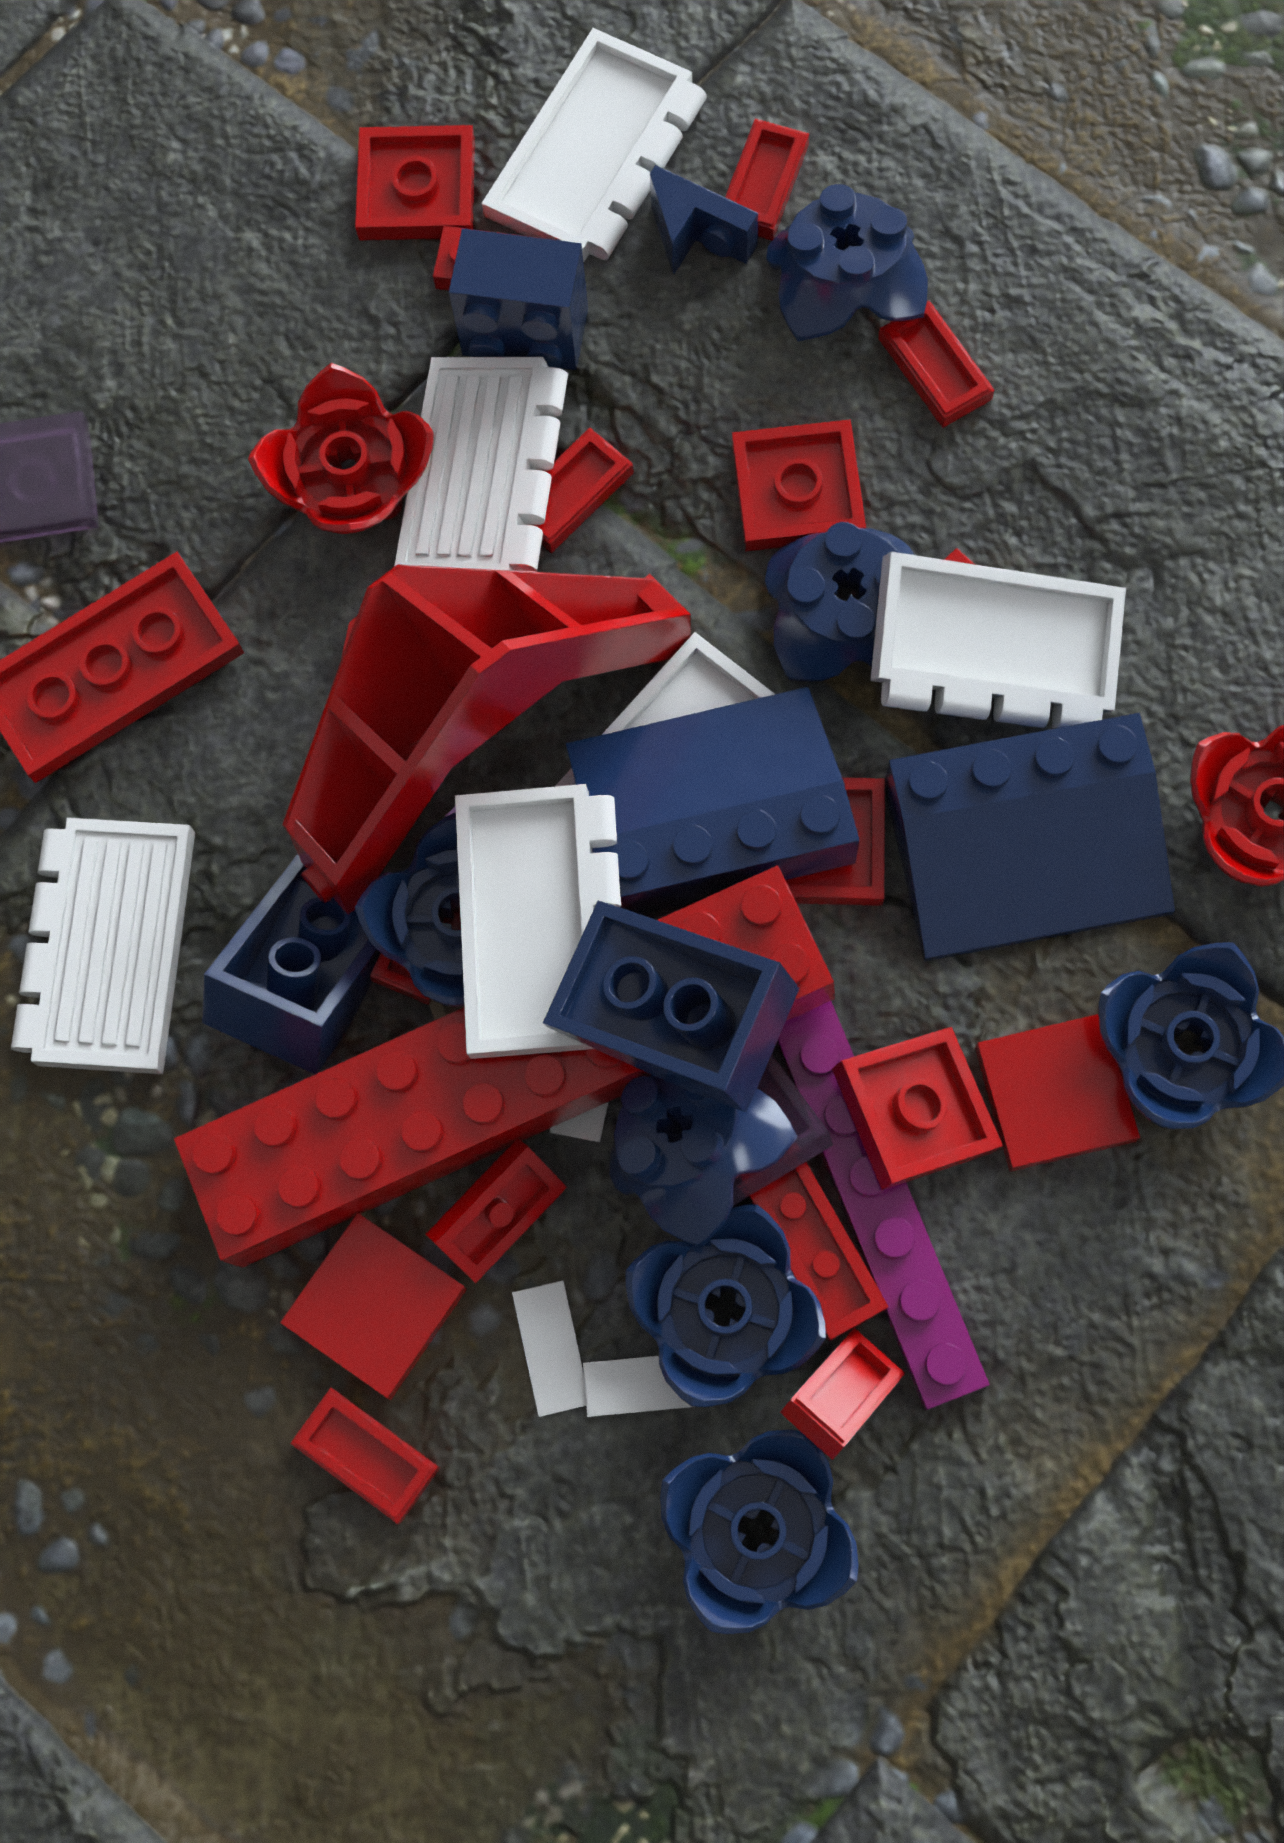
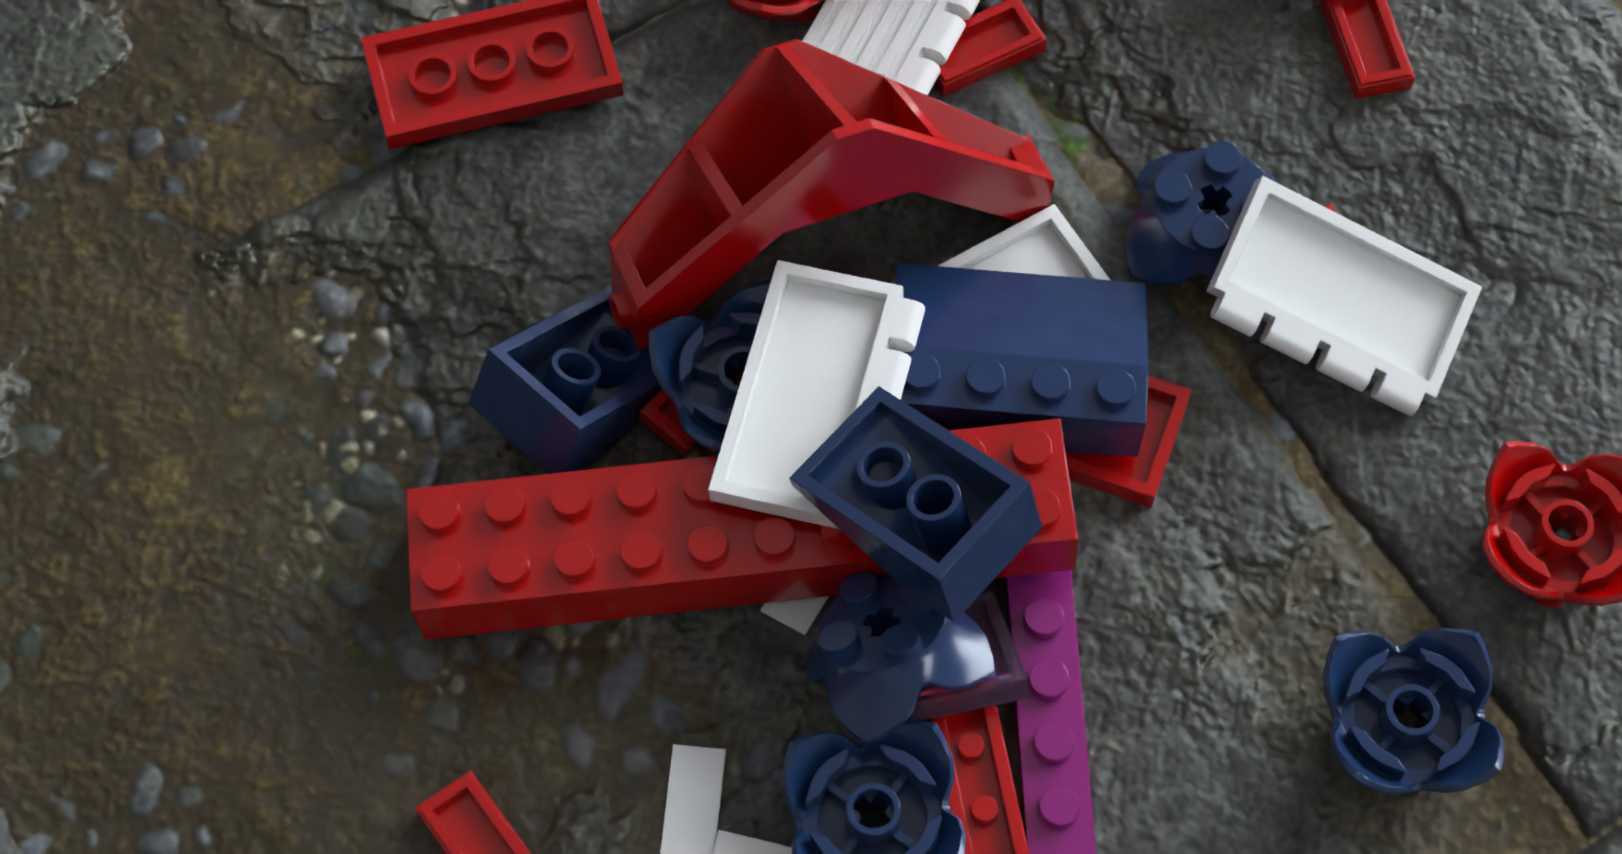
camera: 10 degrees right, 10 degrees down
(109, 948) = (406, 311): white hinge -> none
(374, 1306) = (538, 712): red tile -> none
(496, 1210) = (685, 659): red plate -> none
(796, 482) = (1196, 100): red tile -> none
(916, 1107) = (1121, 695): red tile -> none
(1030, 836) = (1316, 484): dark blue slope -> none
(1055, 1093) = (1262, 730): red tile -> none

